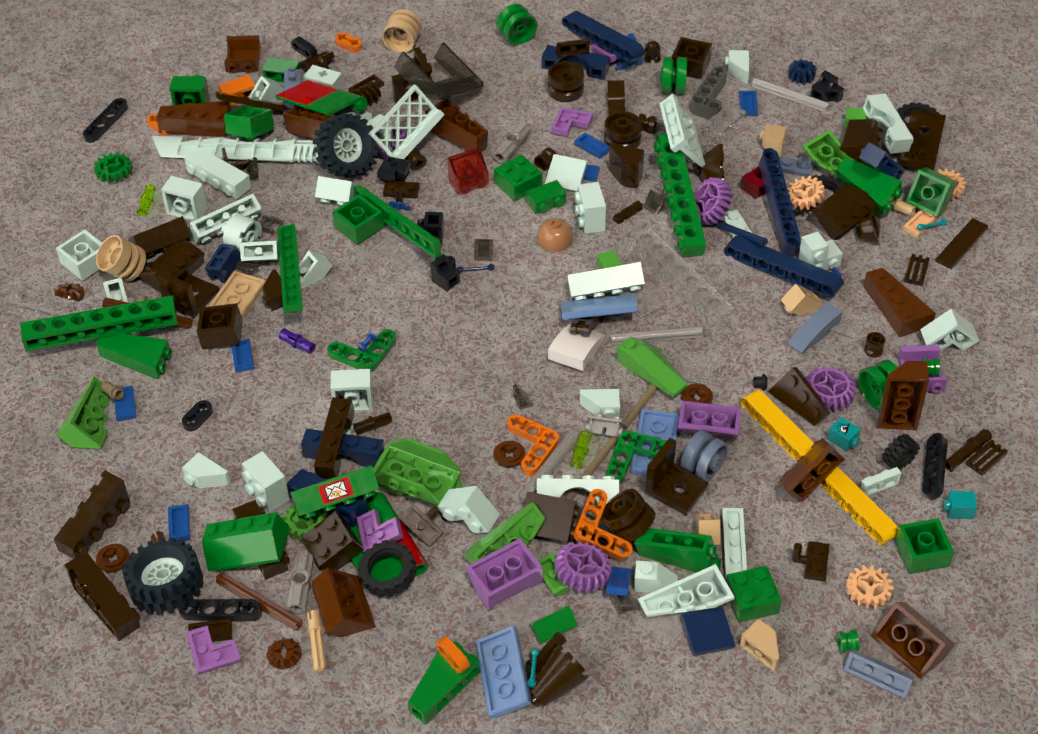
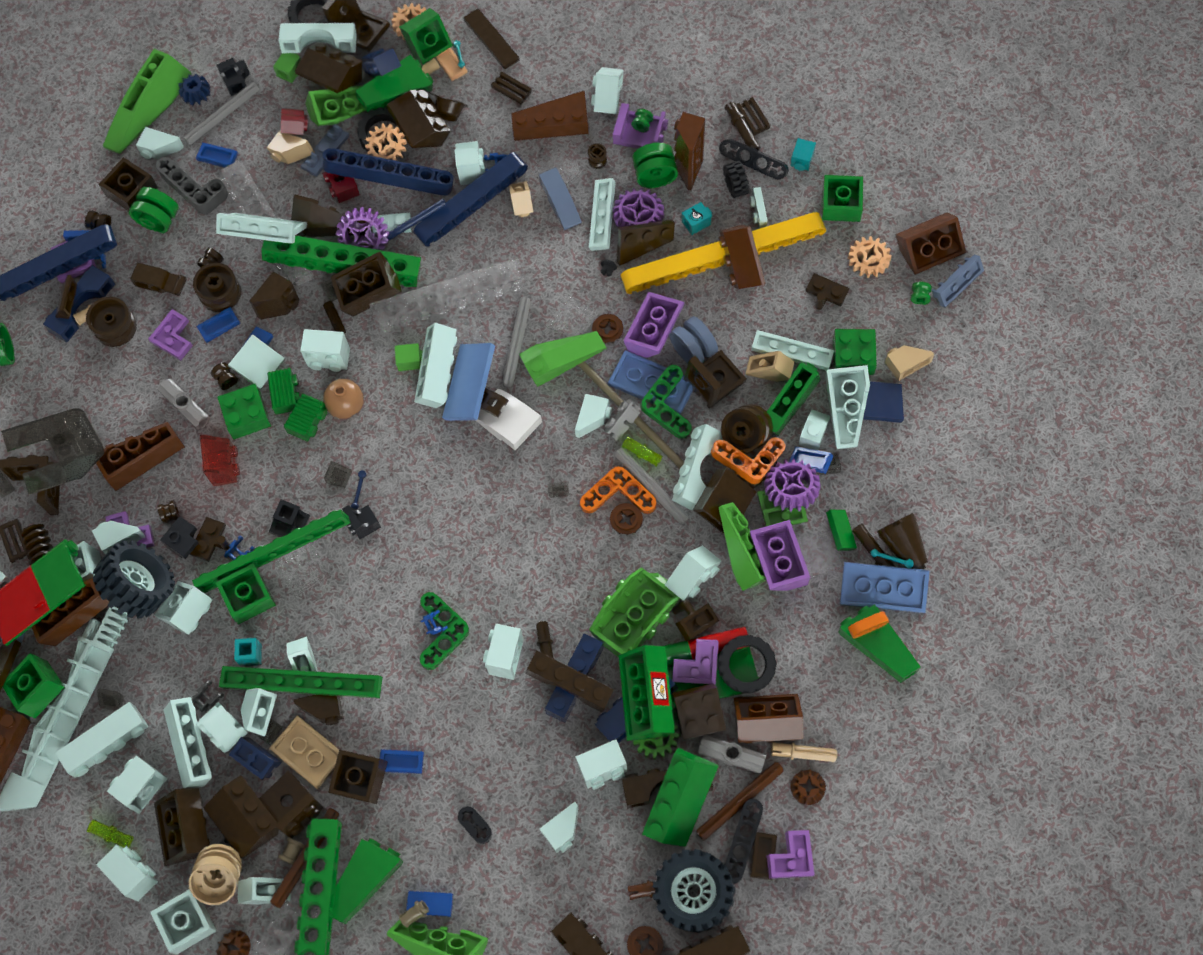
camera: 70 degrees left, 20 degrees up
(113, 167) = (25, 867): green gear -> none
(114, 211) = (127, 873): none -> light aqua brick
(179, 522) = (617, 867): blue tile -> none
(239, 165) = (93, 716): dark brown bracket -> none
(306, 345) = (401, 698): dark purple pin -> none
(309, 233) = (248, 652): none -> teal brick
(417, 134) = (139, 498): light aqua fence -> none
(527, 215) = (305, 417): none -> green brick
(661, 213) = (365, 284): none -> dark brown slope
(777, 45) = (146, 99): none -> bright green wedge
(797, 131) = (293, 121): none -> dark red brick
(809, 363) = (602, 214): none -> light aqua plate

